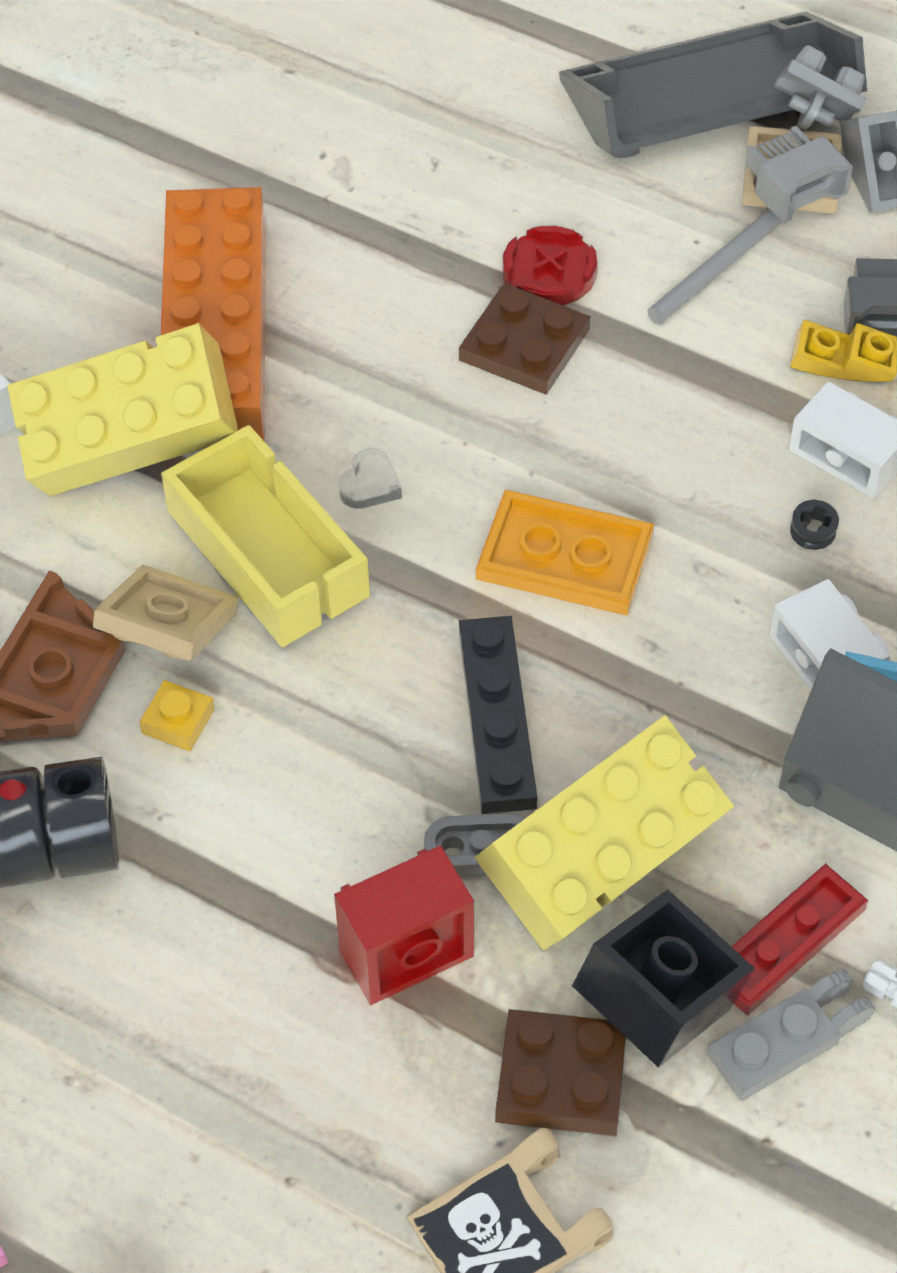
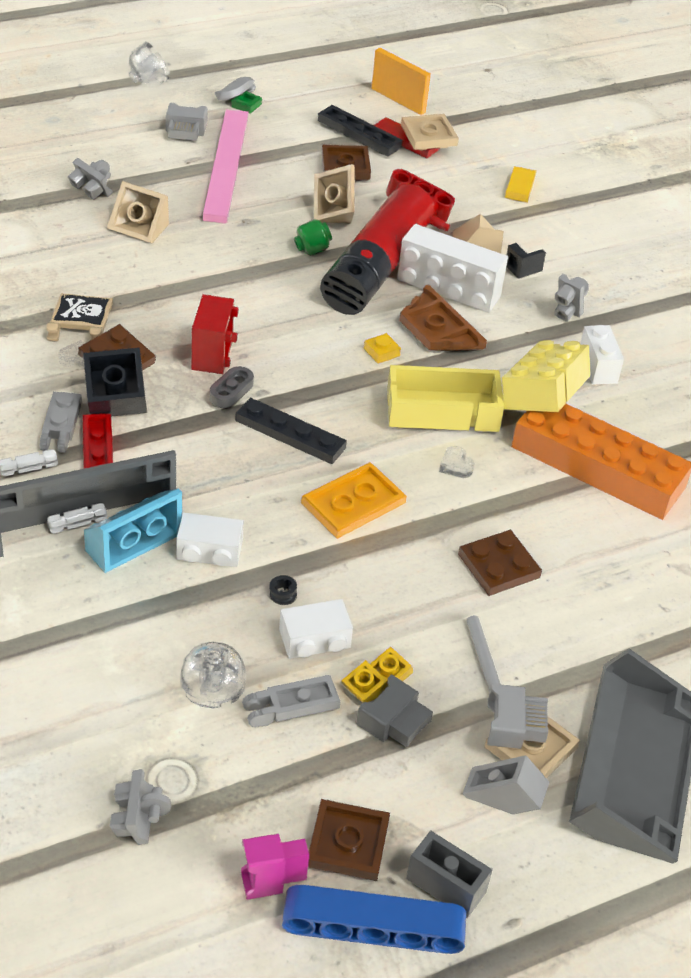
camera: 120 degrees right, 10 degrees down
(165, 613) = (430, 349): tan plate -> none
(551, 264) = (544, 602): red tile -> none
(603, 833) = (194, 404): light yellow piece -> none
(816, 94) = (574, 771): light grey hips -> none

